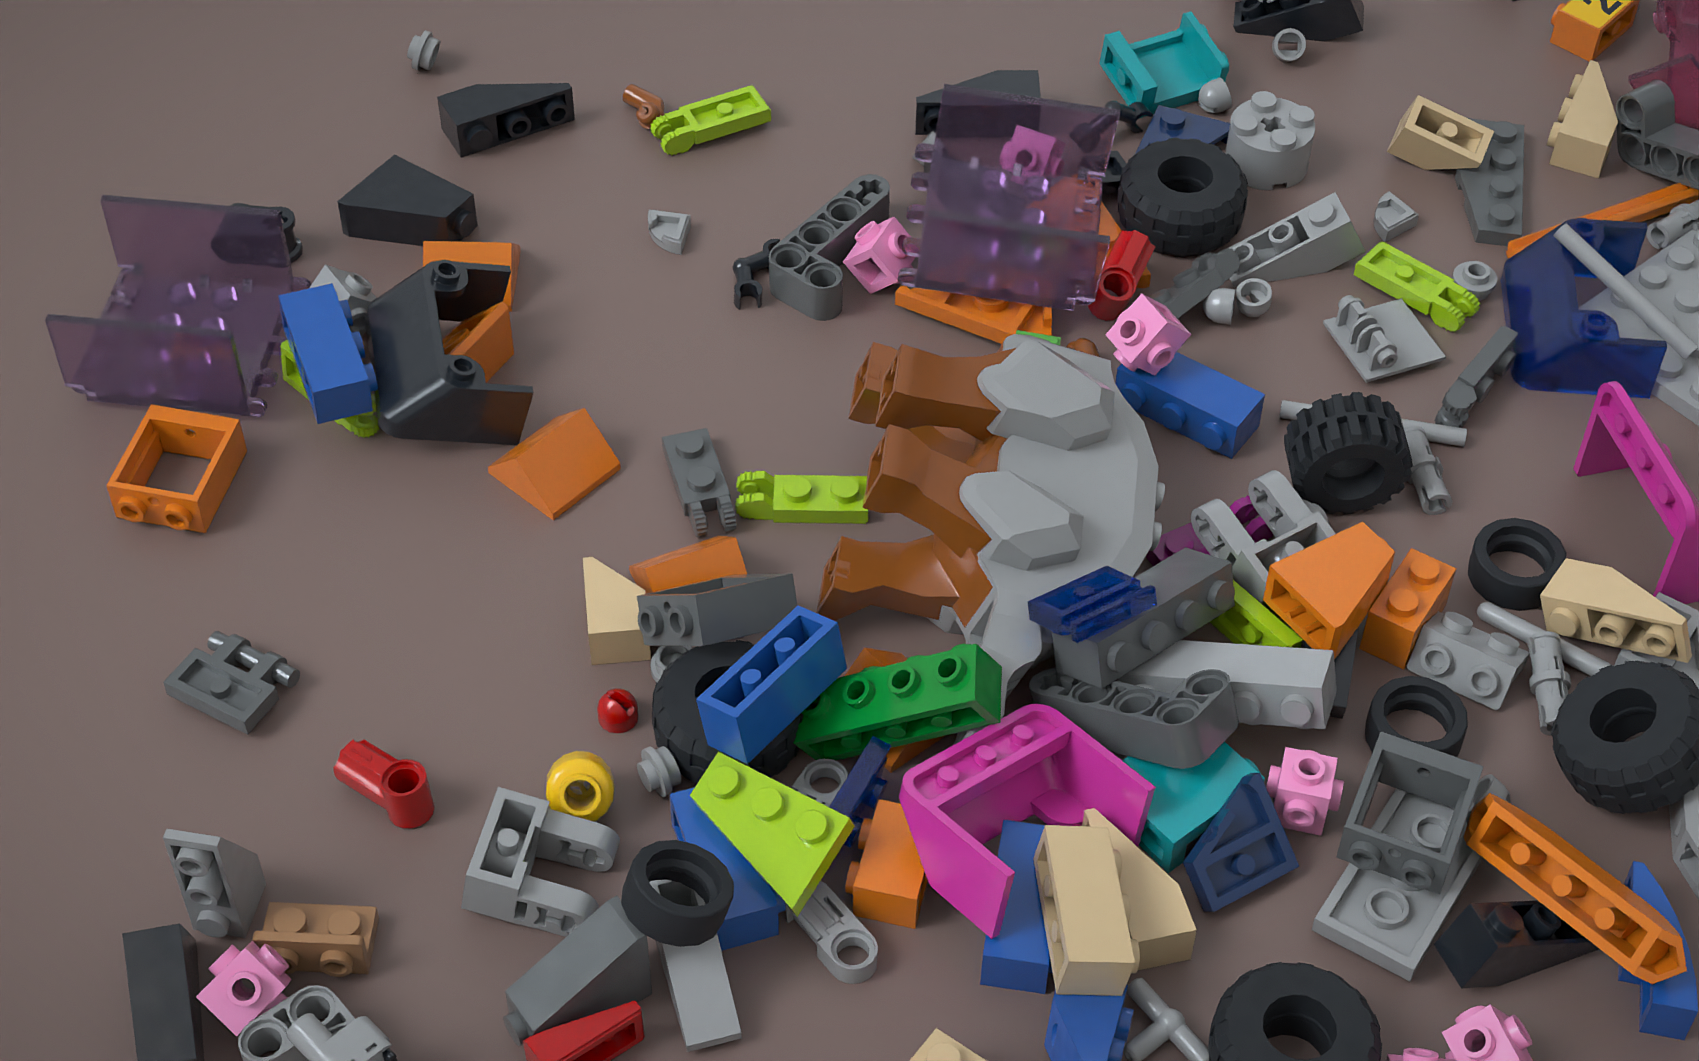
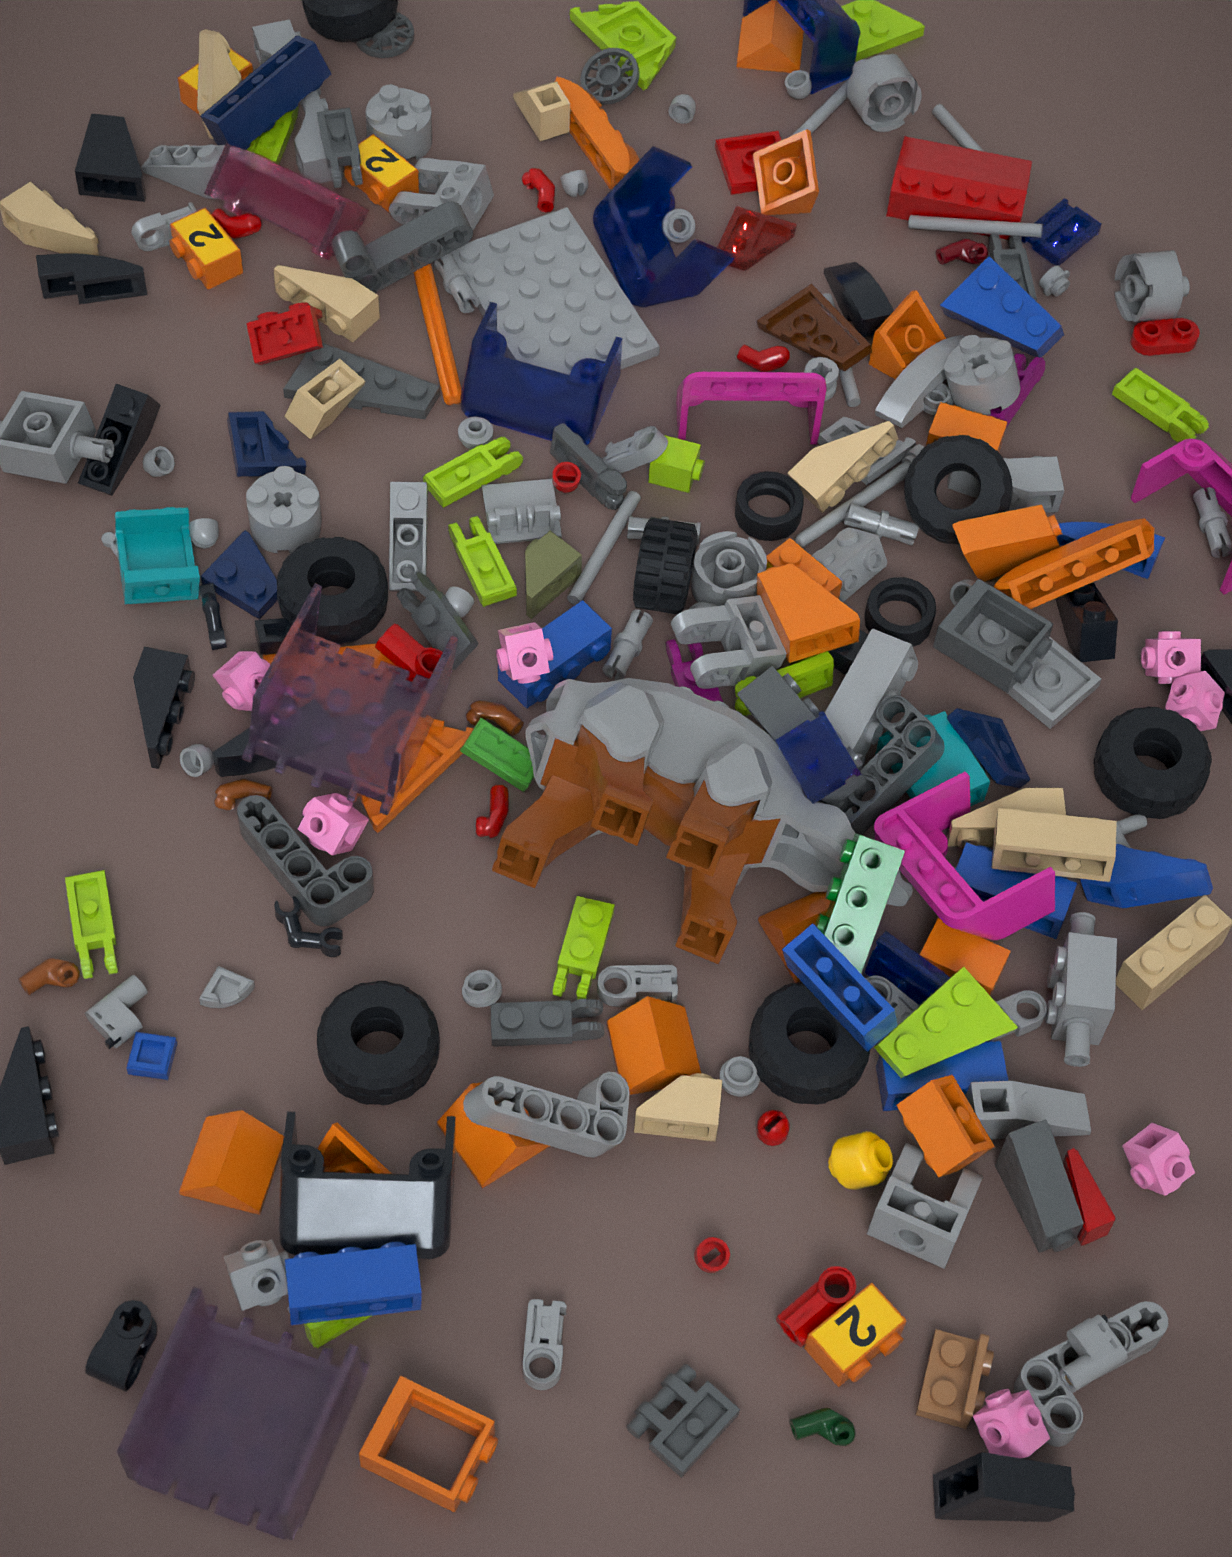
camera: 80 degrees left, 10 degrees up
(217, 882) = (915, 1433): light grey slope -> none
(245, 814) = (825, 1423): none -> dark green arm
(313, 547) = (544, 1340): none -> light grey piece
(353, 822) = (856, 1335): none -> brick
(407, 206) = (132, 1200): black slope -> none
(440, 663) = (717, 1263): none -> red hinge
(562, 472) = (501, 1104): none -> light grey beam
(578, 194) = (151, 1055): none -> blue tile
(608, 854) = (945, 1126): none -> orange brick
(613, 156) = (112, 1013): none -> light grey piece
(626, 340) = (385, 1076): none -> black tyre
(658, 770) = (847, 1104): light grey plate -> none
(664, 919) = (1013, 1112): black tyre -> none
(715, 609) = (696, 1013): dark grey window -> none
(722, 417) = (481, 988): none -> light grey plate
(771, 555) = (641, 981): none -> light grey piece
(883, 989) = (1082, 989): none -> light grey brick
(901, 183) = (239, 789): none -> dark orange arm
(1233, 464) = (627, 645): none -> light grey pin
(1259, 293) = (454, 573): light grey hinge -> none
(1287, 316) = (483, 563): none -> lime hinge
(1296, 367) = (549, 571): none -> olive slope
(1304, 789) = (948, 690): bright pink brick -> none
(1351, 113) = (259, 446): none -> dark blue wing
(1389, 508) = (726, 568): none -> light grey brick
(1393, 217) = (384, 461): light grey tile -> none
(1459, 361) = (566, 472): none -> red hinge
(1512, 92) = (285, 334): none -> red bracket
(1517, 408) = (635, 451): none -> light grey piece
(1528, 458) = (677, 465): none -> lime brick
(1577, 797) = (1006, 539): none -> orange slope
(1625, 291) = (549, 342): light grey bar -> none
(1649, 39) = (239, 225): none -> red arm

